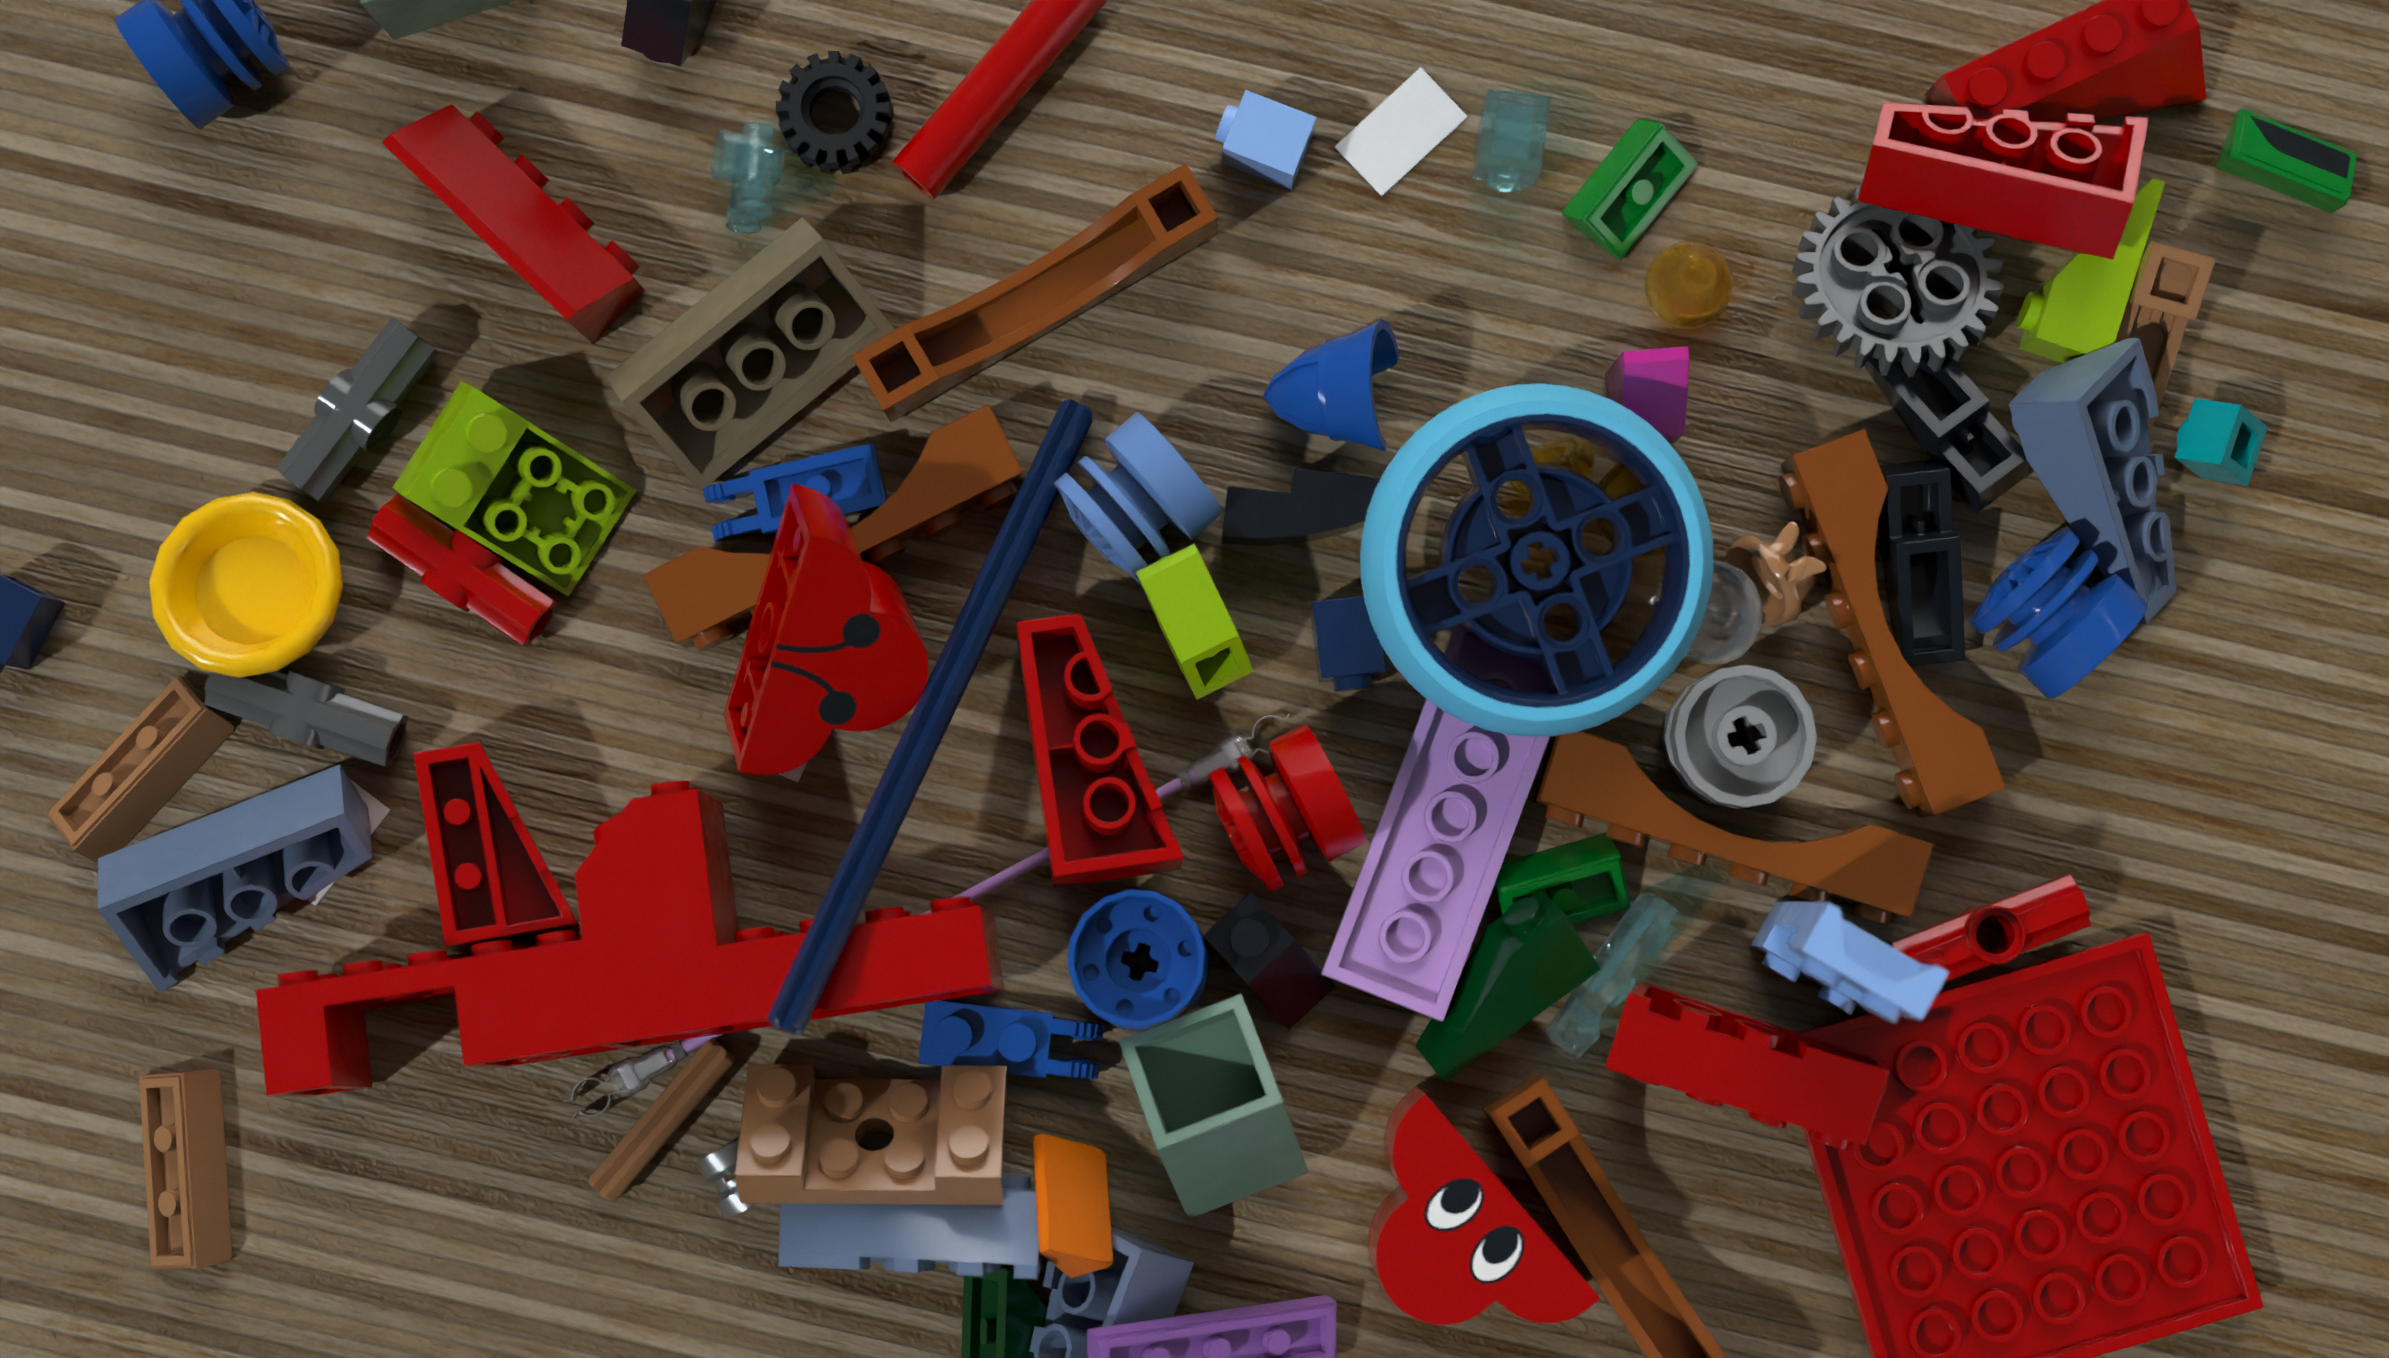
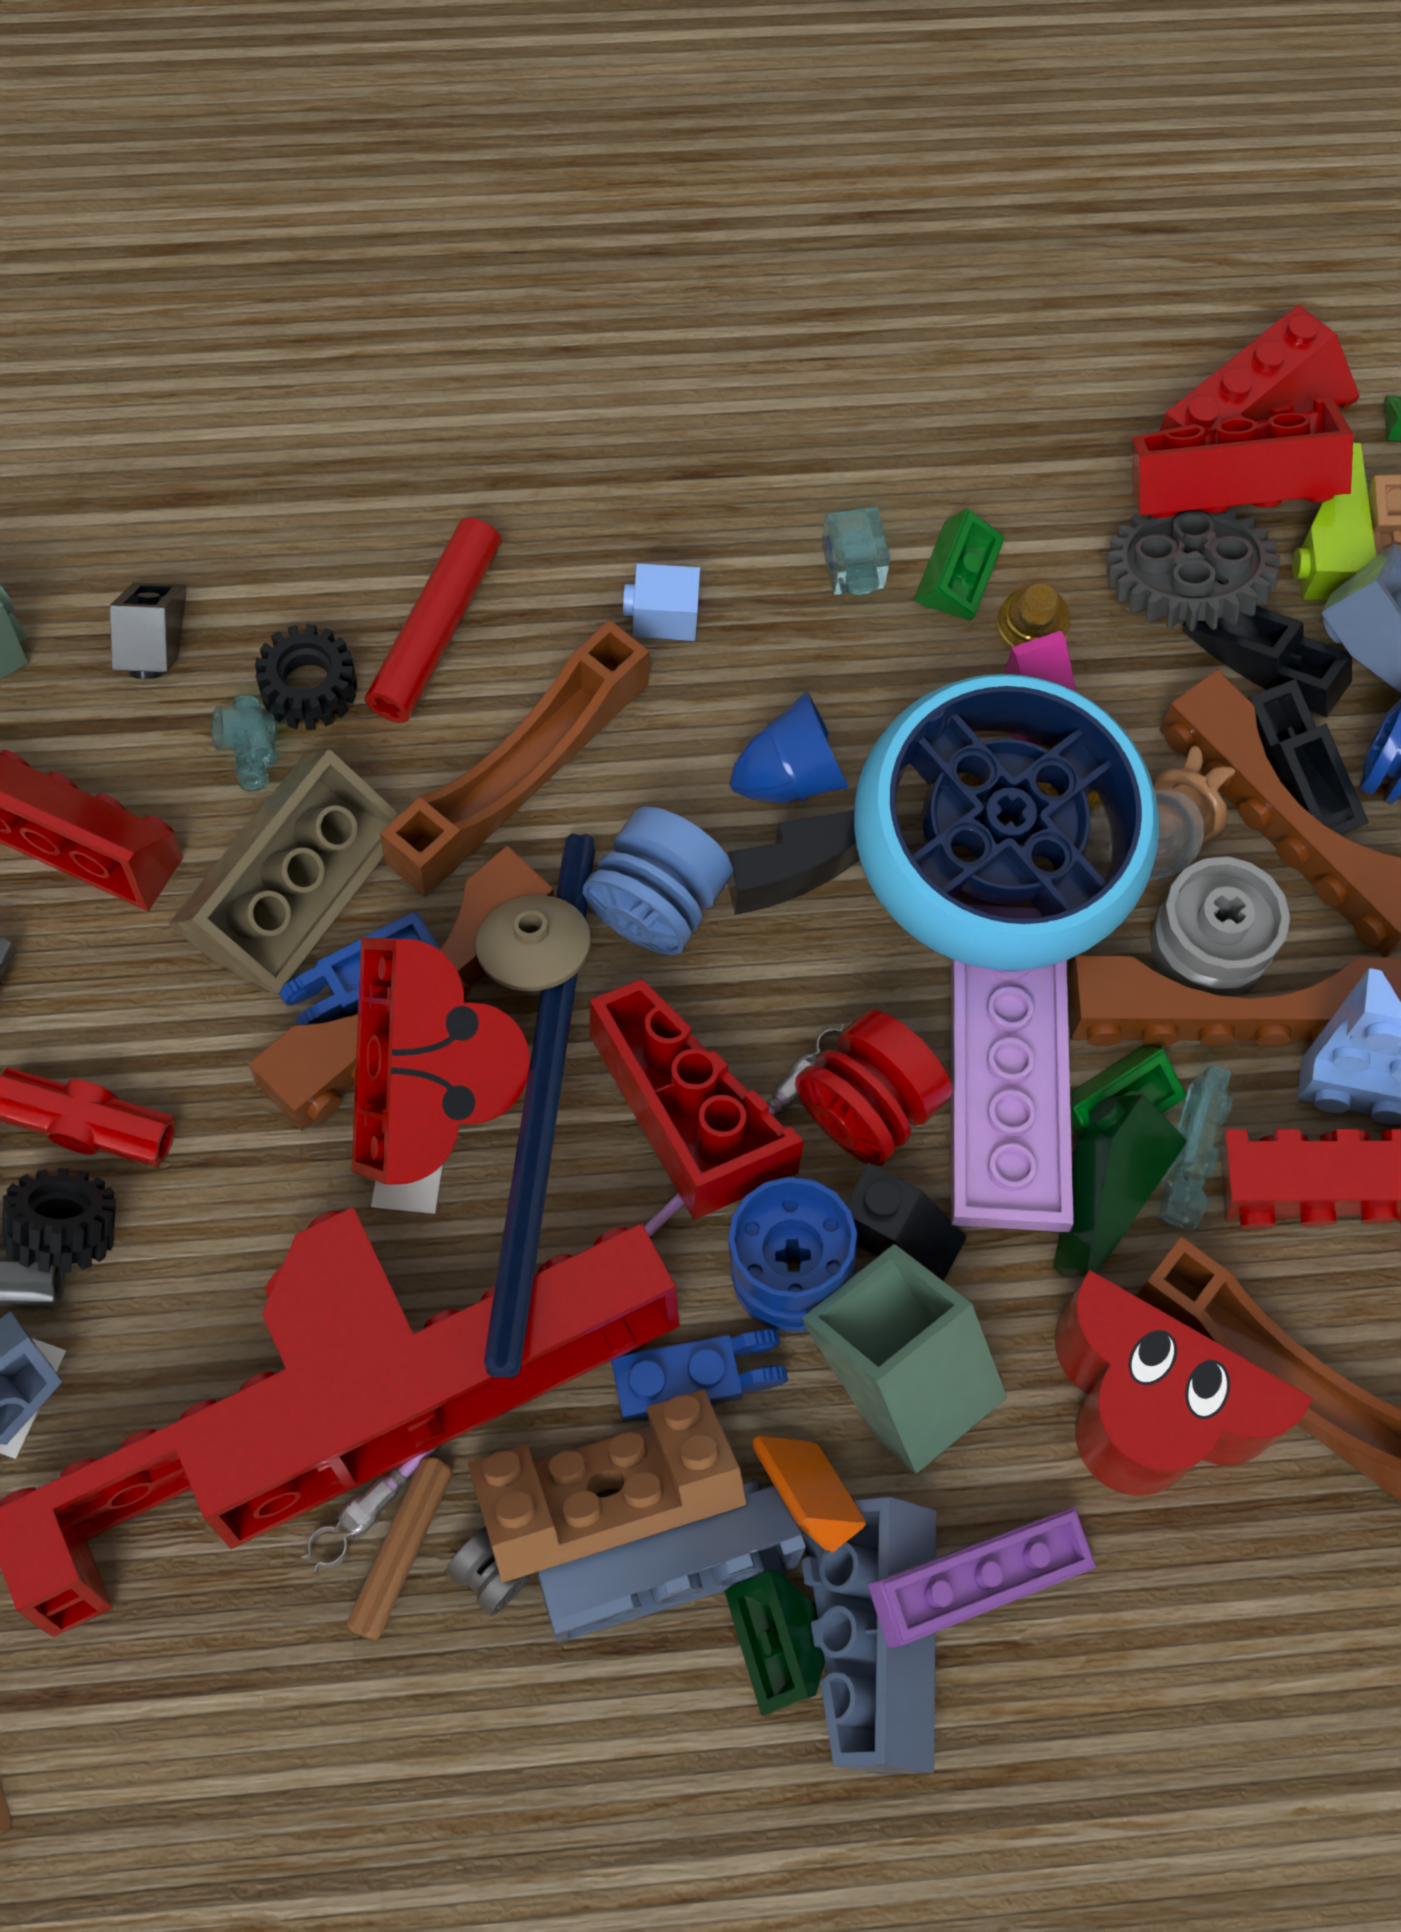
camera: 20 degrees left, 20 degrees down
(413, 655) = (58, 1220): none -> black tyre
(481, 852) = (161, 1336): red wedge -> none
(514, 488) = (111, 1032): lime slope -> none
(984, 561) = (537, 958): none -> dark tan dish
(1195, 621) = (740, 962): lime slope -> none
(1346, 644) = (870, 950): dark blue brick -> none
(1401, 131) = (766, 577): white sticker -> none

